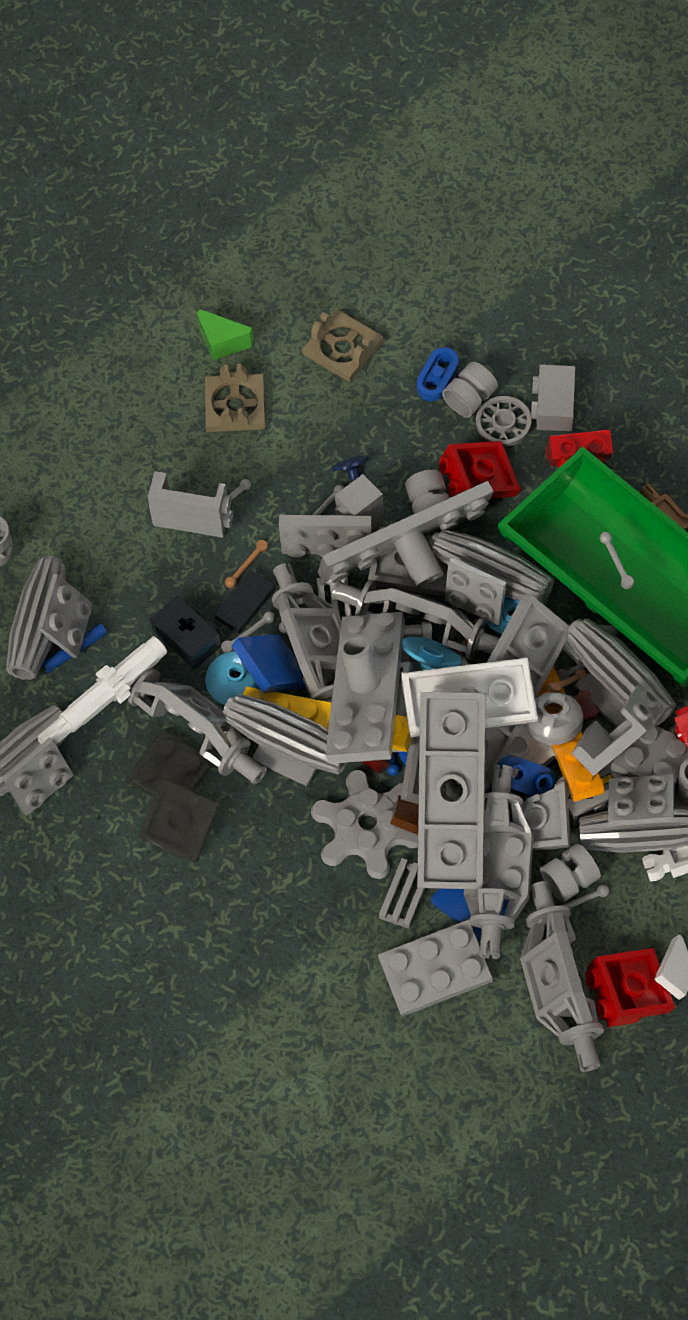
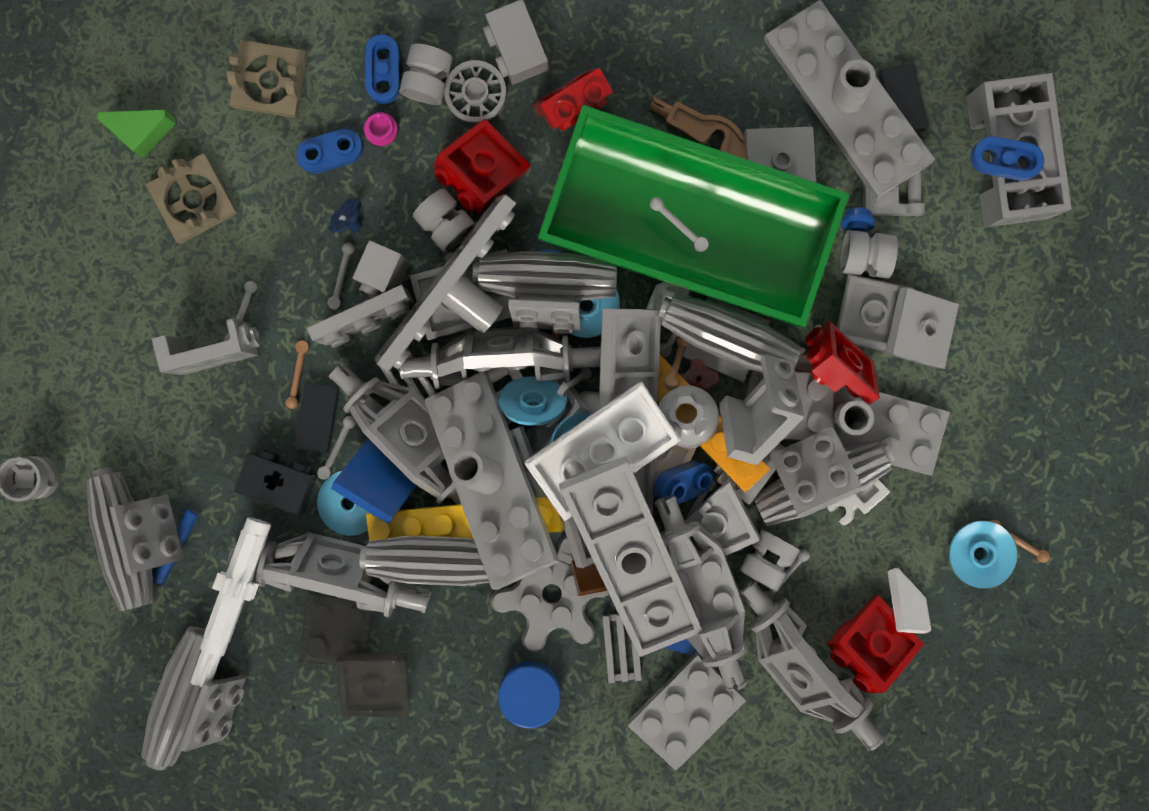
camera: 30 degrees left, 25 degrees up
(306, 892) = (529, 694): none -> blue head
(362, 414) = (328, 150): none -> blue plate
(413, 415) = (380, 129): none -> dark pink plate
(462, 651) = (585, 373): none -> light grey hinge

